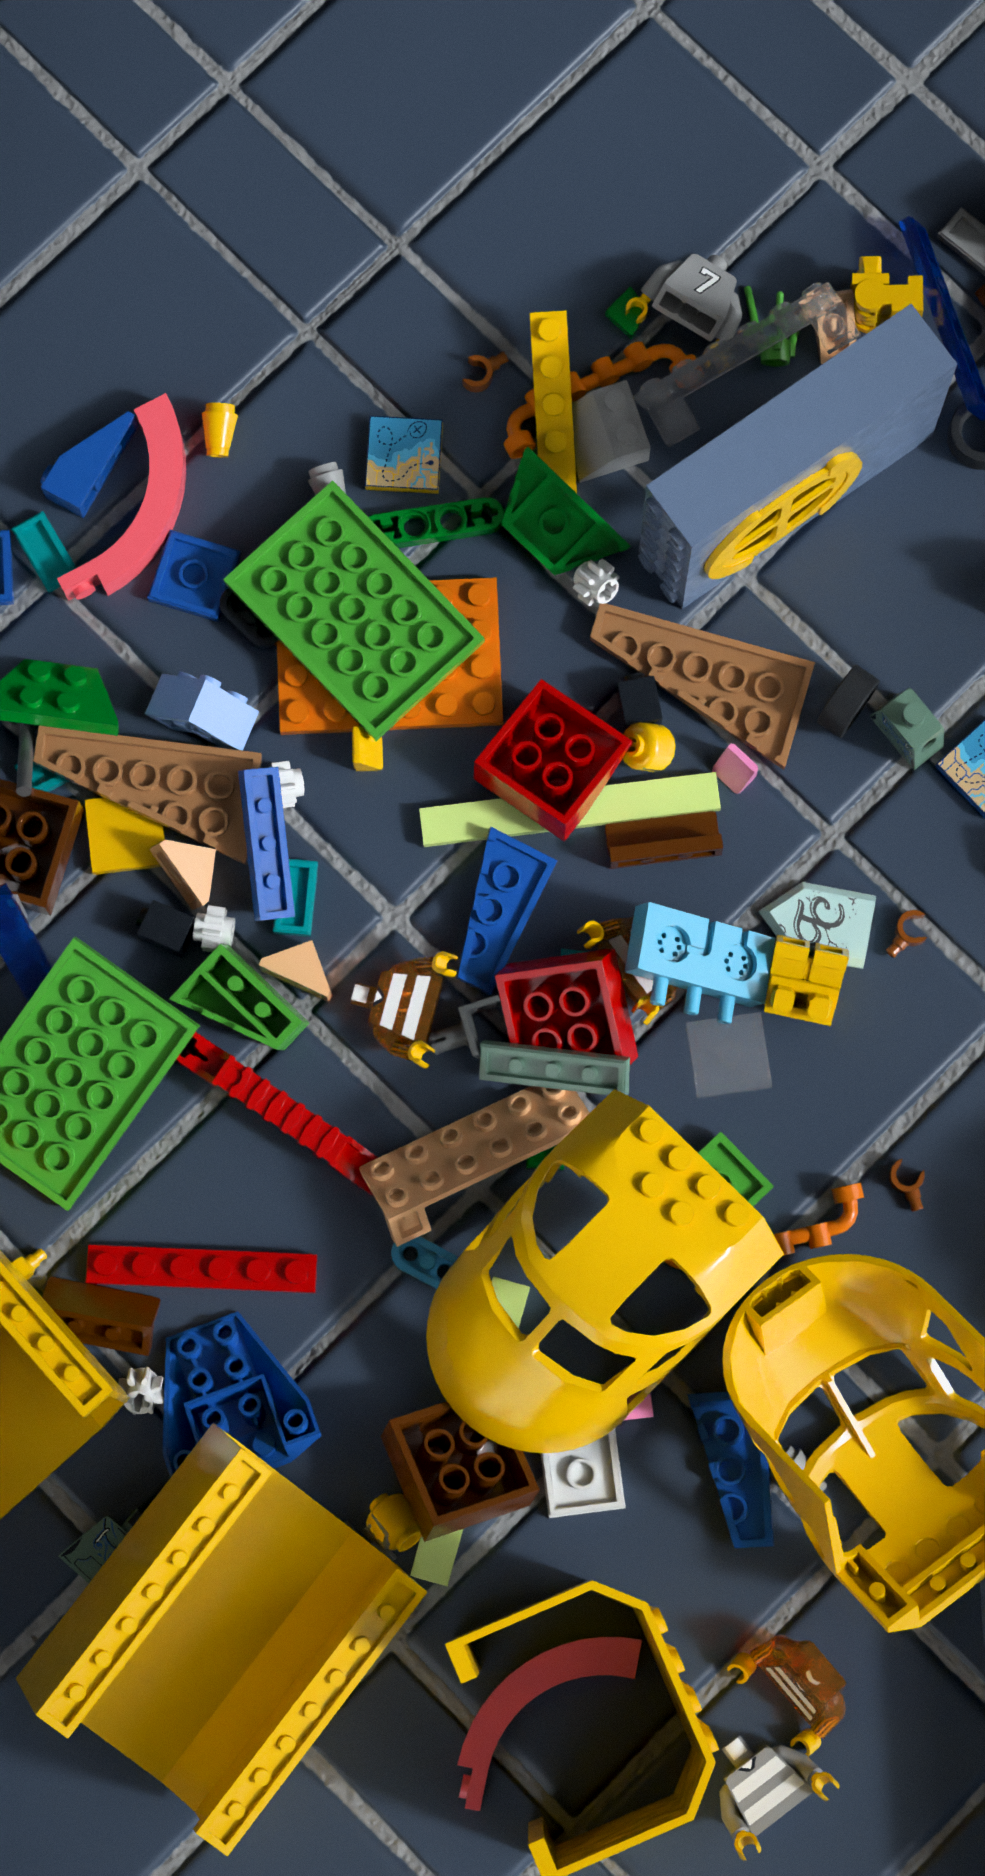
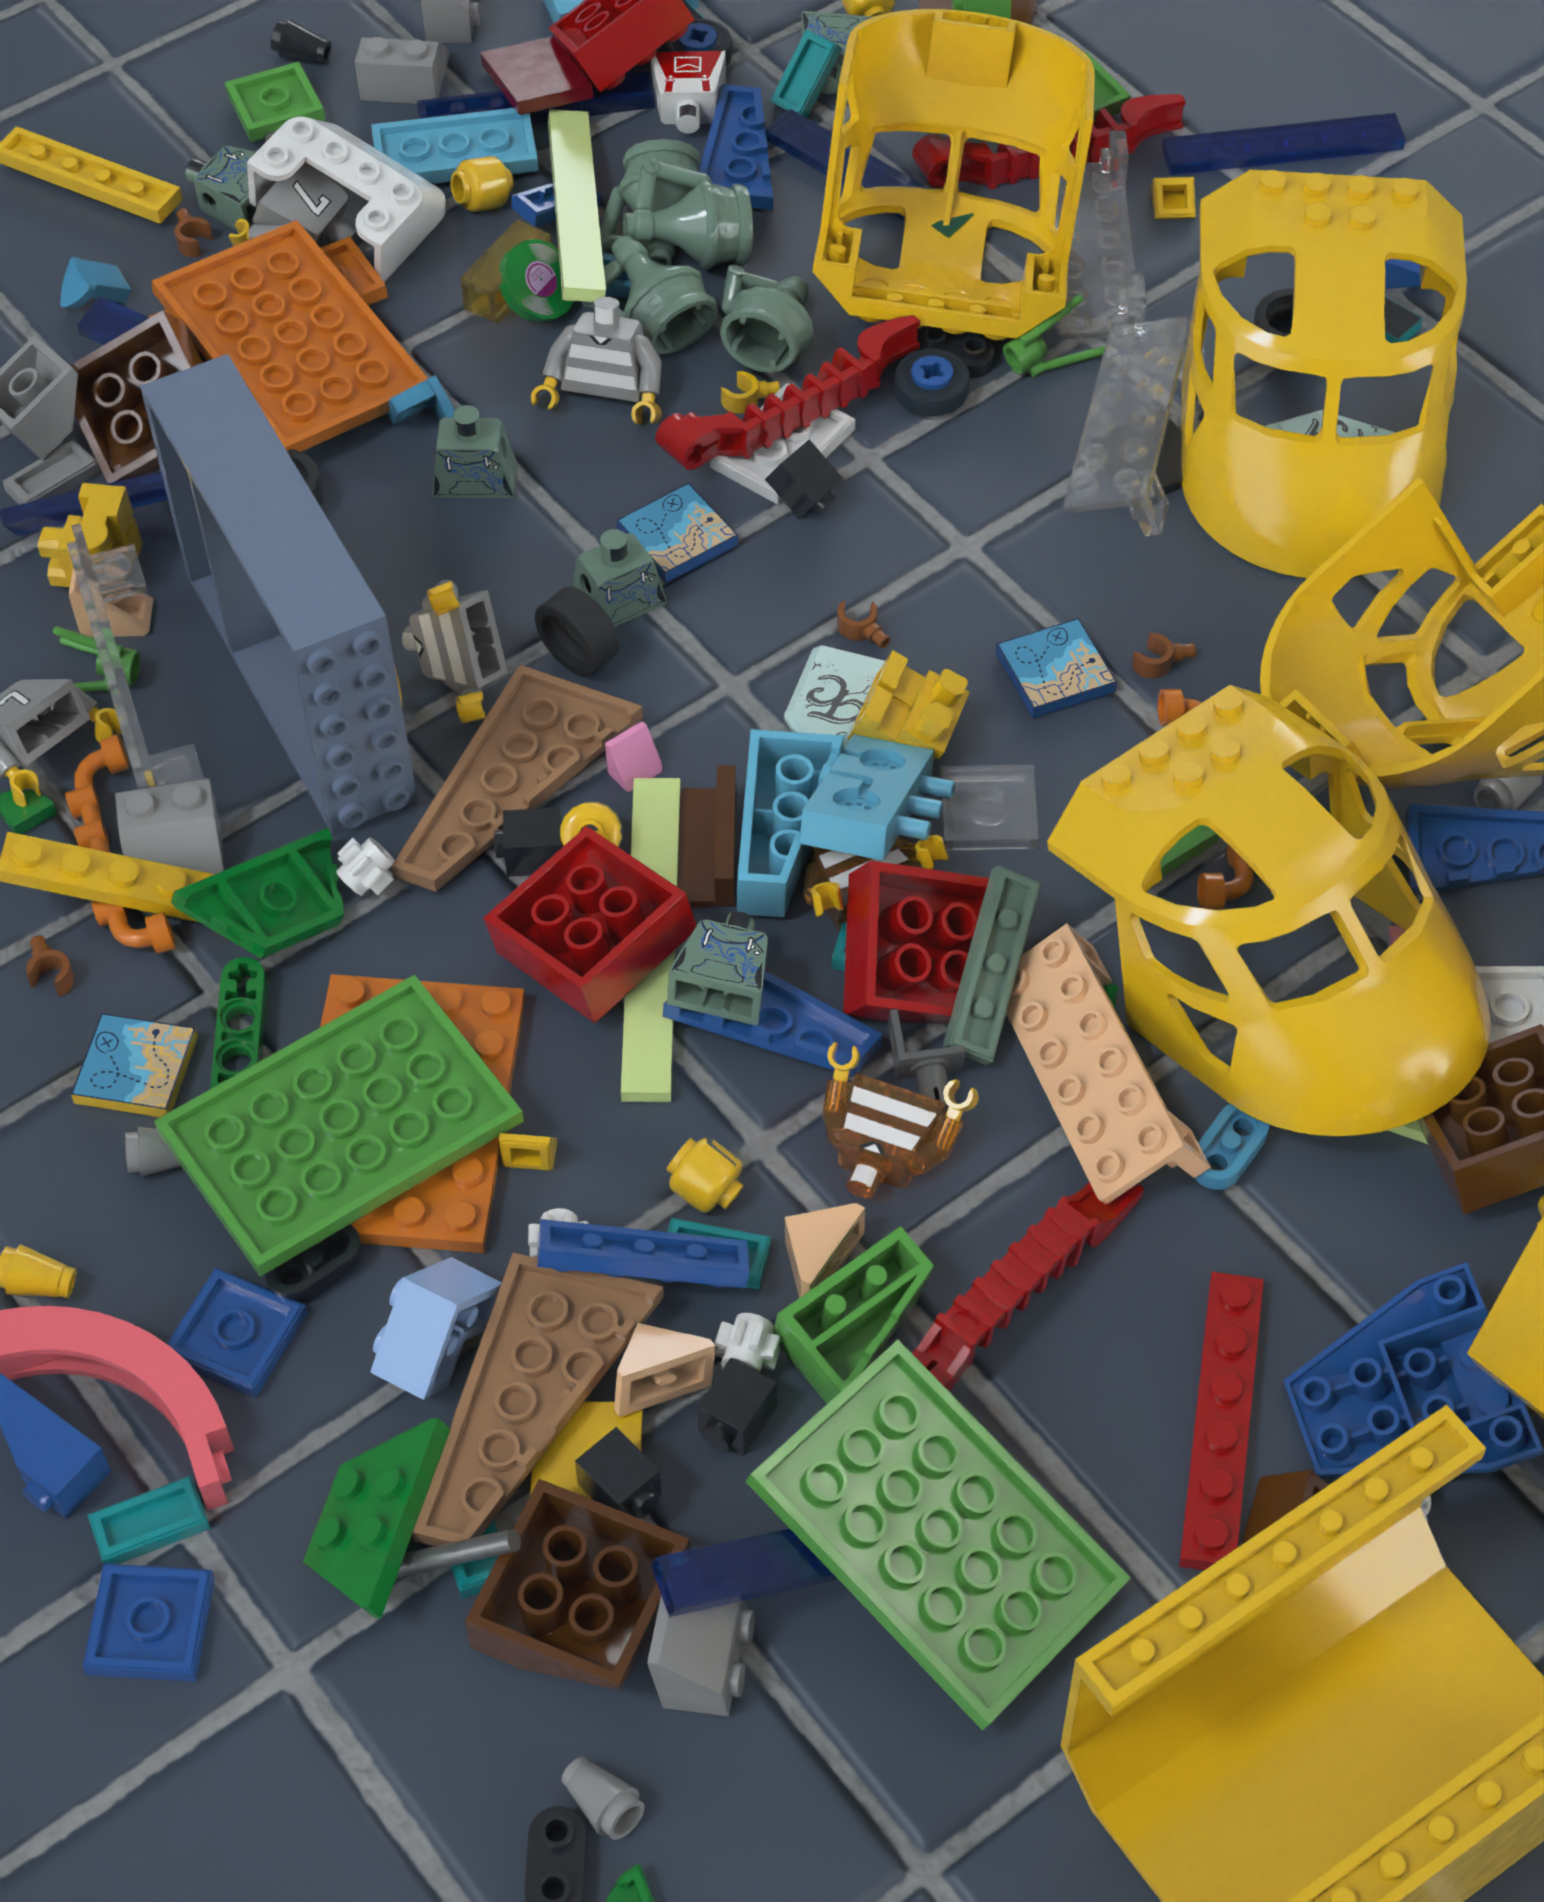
camera: 85 degrees left, 25 degrees down
(95, 856) = (619, 1475): none -> black brick
(352, 880) = (705, 1174): none -> yellow head
(521, 865) = (721, 970): none -> sand green torso
(701, 886) = (779, 783): none -> medium azure wedge
(816, 614) = (457, 644): none -> light grey torso
(882, 1096) = (1056, 668): none -> tile

